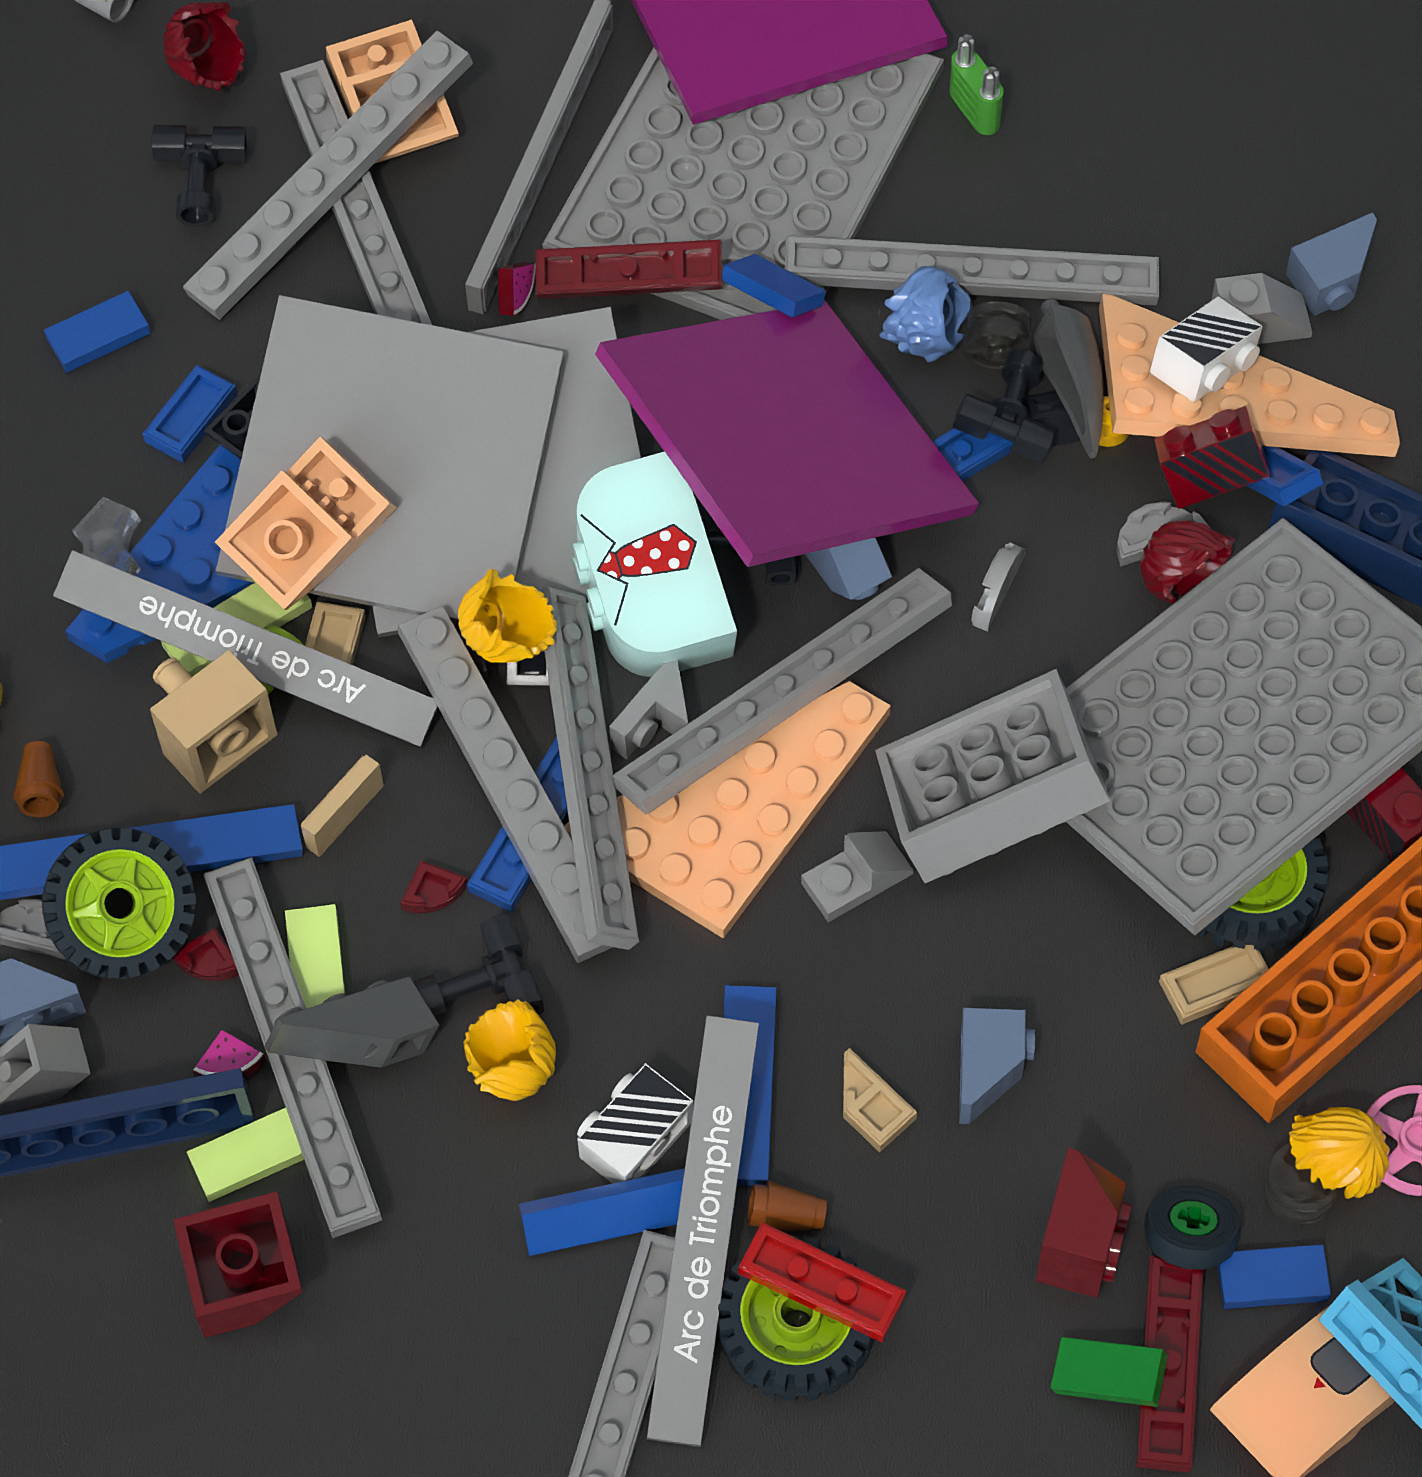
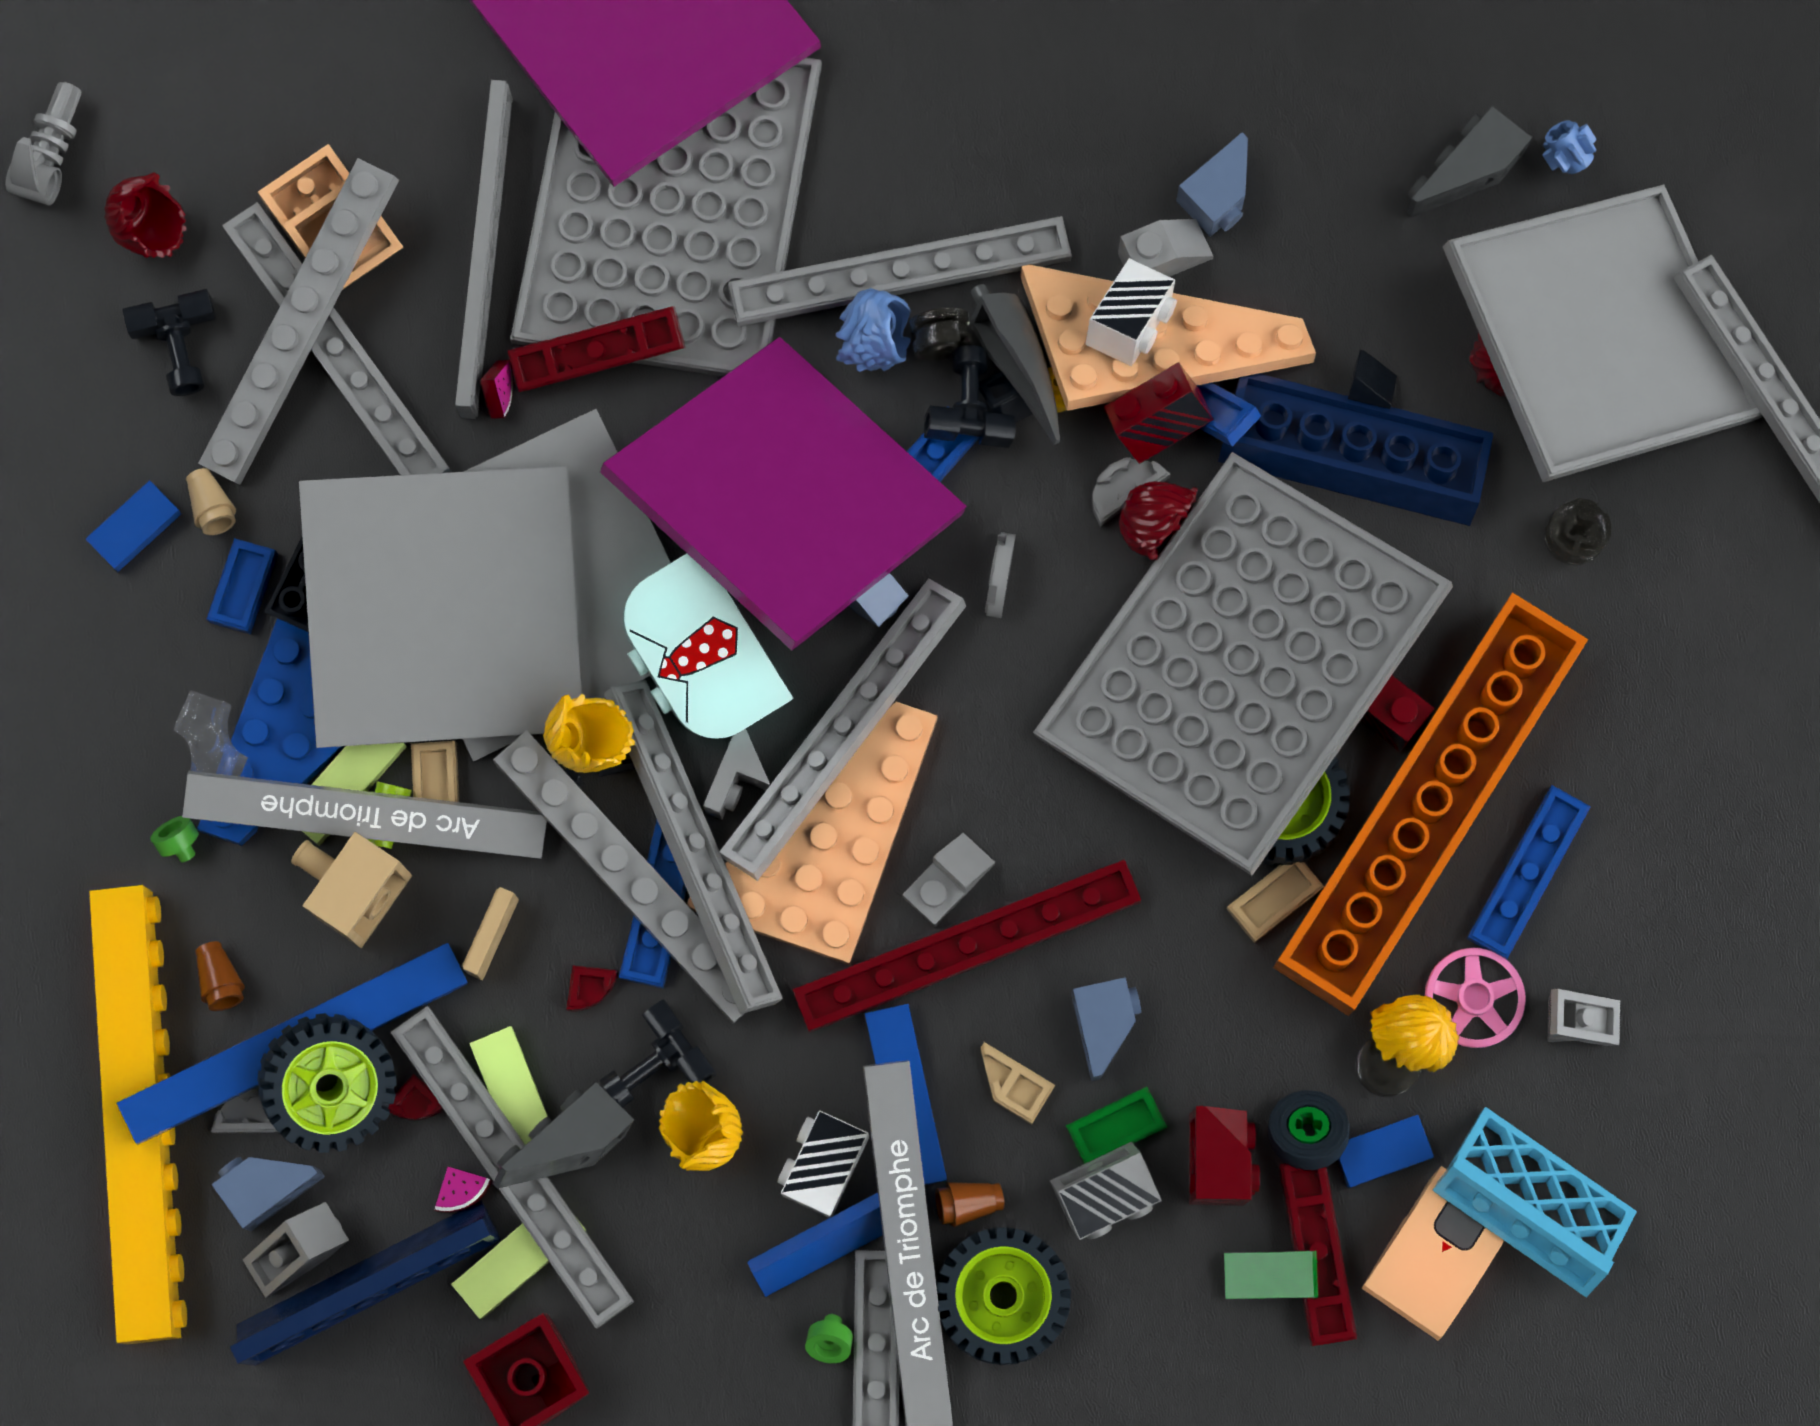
camera: 15 degrees left, 15 degrees up
(40, 634) = (175, 838): none -> bright green tile
(182, 326) = (209, 503): none -> tan cone
(305, 523) = (385, 689): light nougat slope -> none
(586, 1316) = (829, 1340): none -> bright green tile
(773, 285) = (731, 338): blue tile -> none
(822, 1282) = (1018, 1267): red tile -> none
(858, 944) = (966, 946): none -> dark red plate
(944, 1234) = (1106, 1192): none -> brick
(974, 1175) = (1116, 1125): none -> green tile
(976, 88) = (859, 88): bright green piece -> none
(990, 776) = (1041, 767): light grey slope -> none

